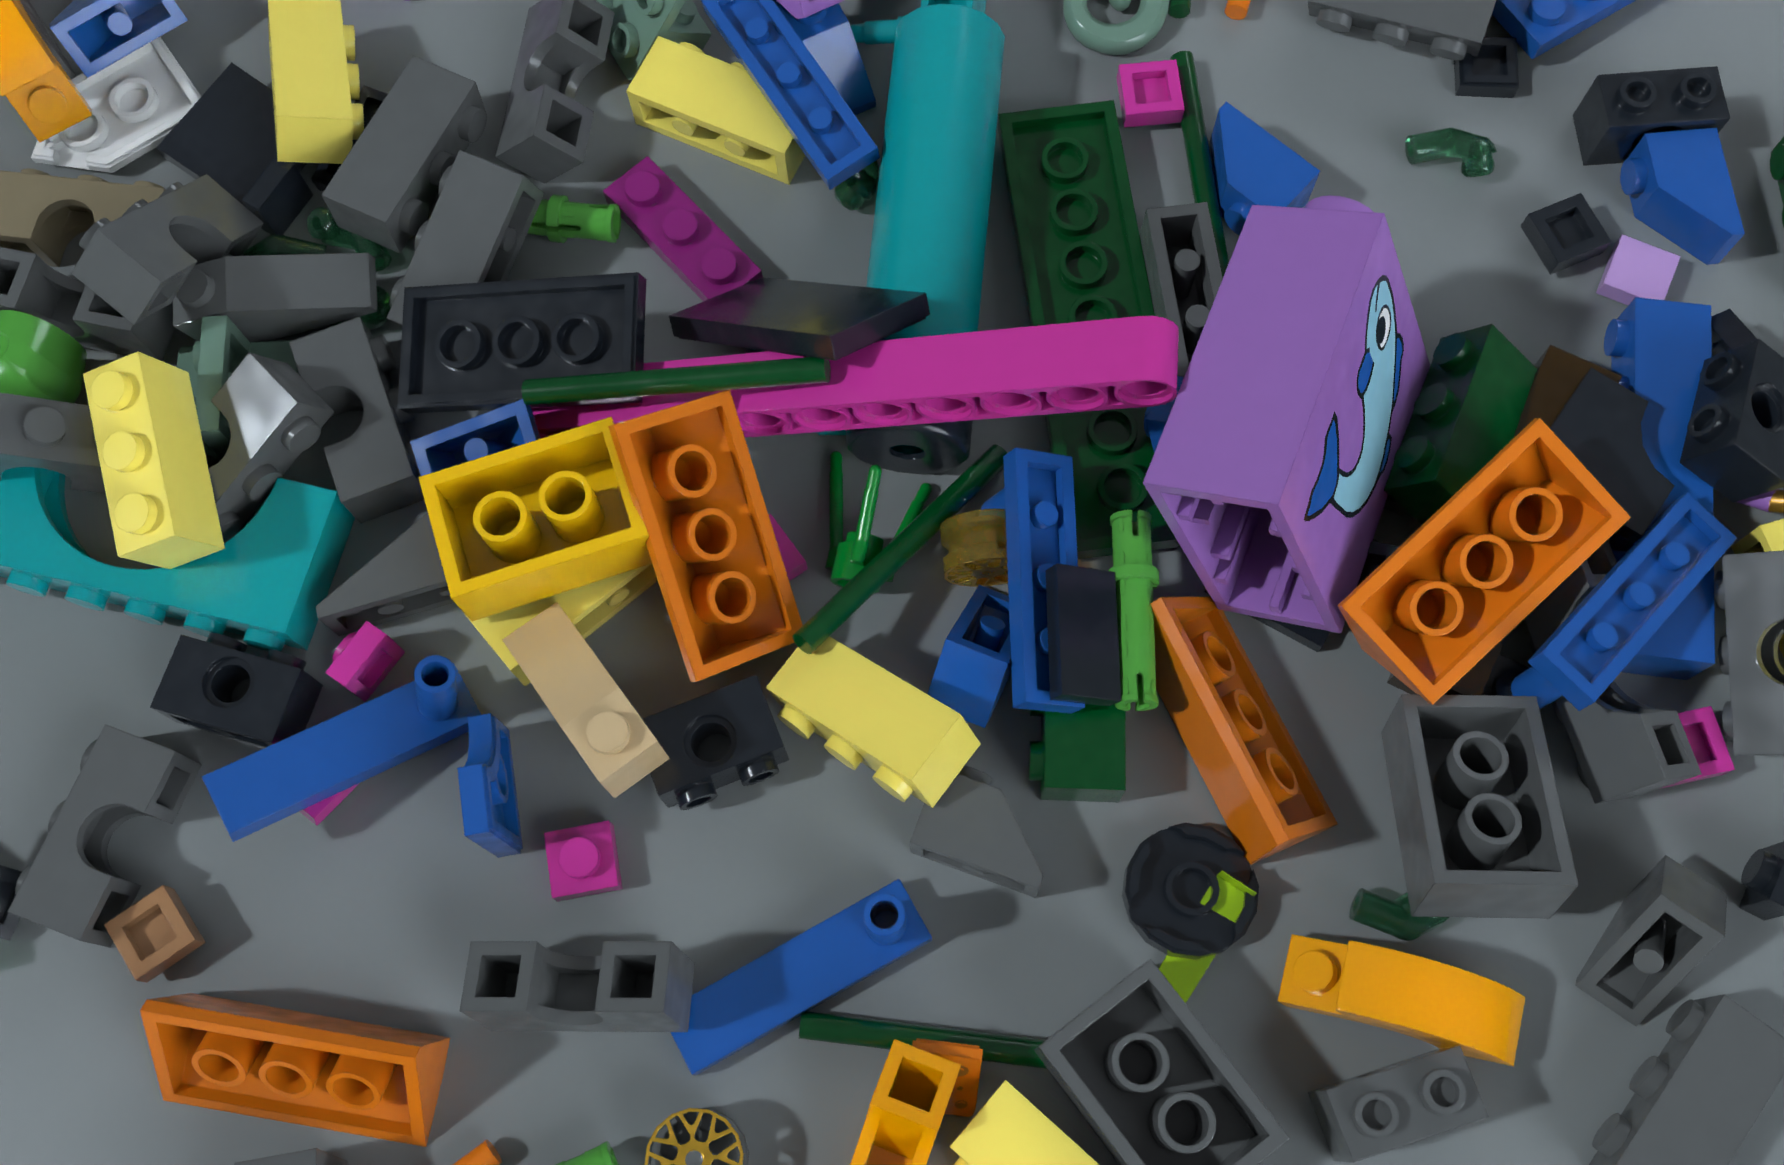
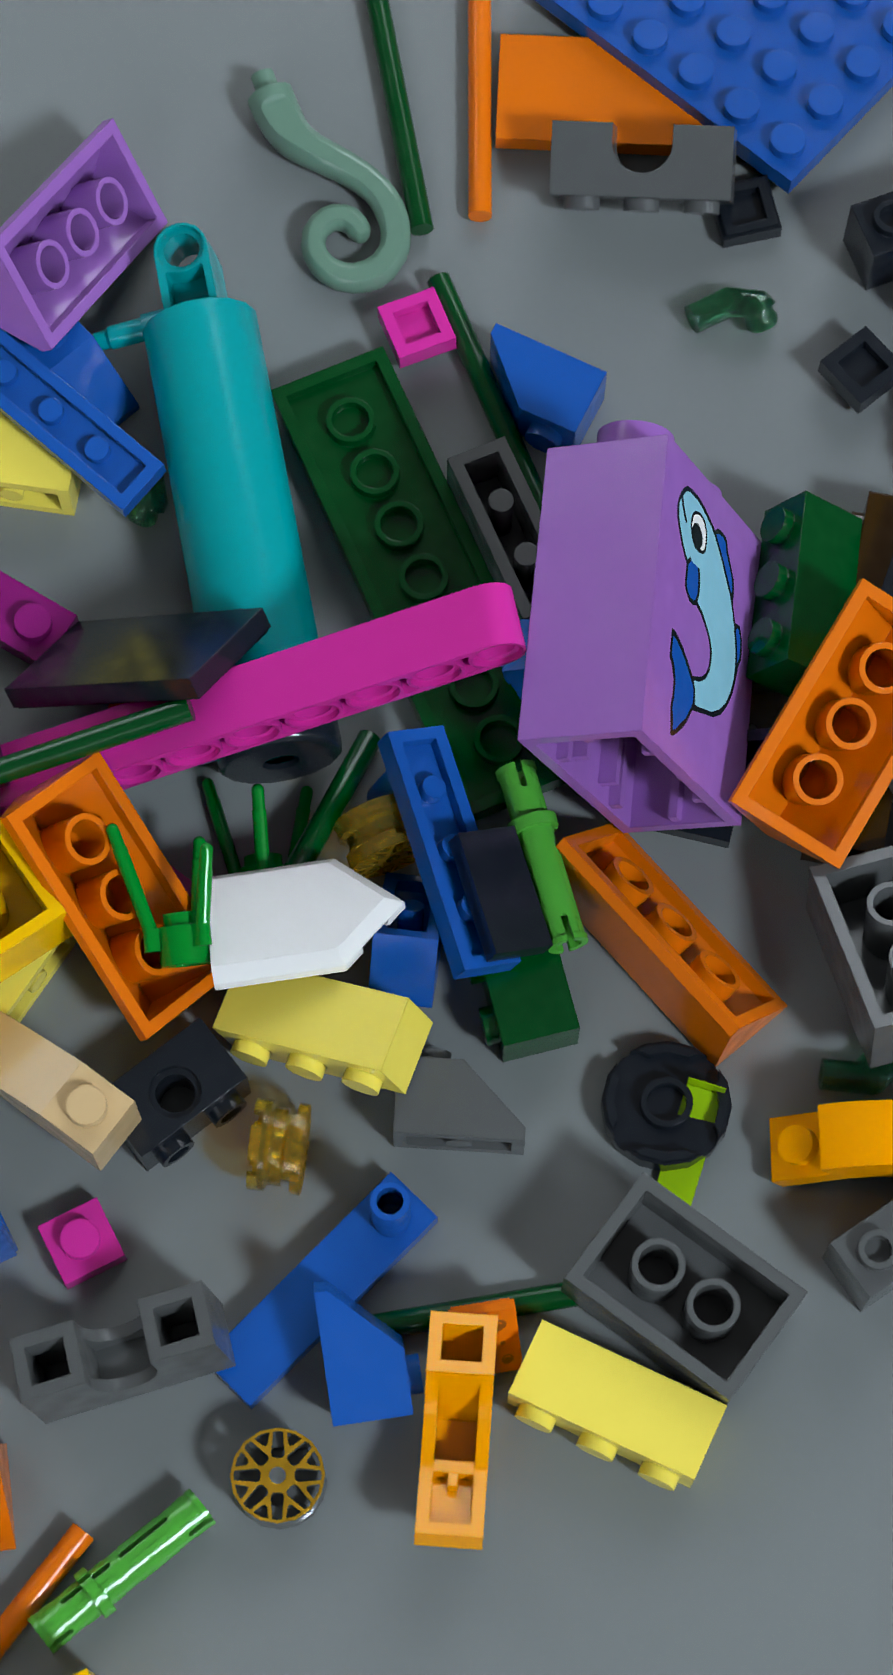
camera: 20 degrees left, 0 degrees up
(762, 590) = (185, 934): none -> green plant
(795, 822) = (278, 1146): none -> clear yellow wheel
(813, 1066) = (363, 1361): none -> blue slope
(869, 606) = (293, 922): none -> white tile

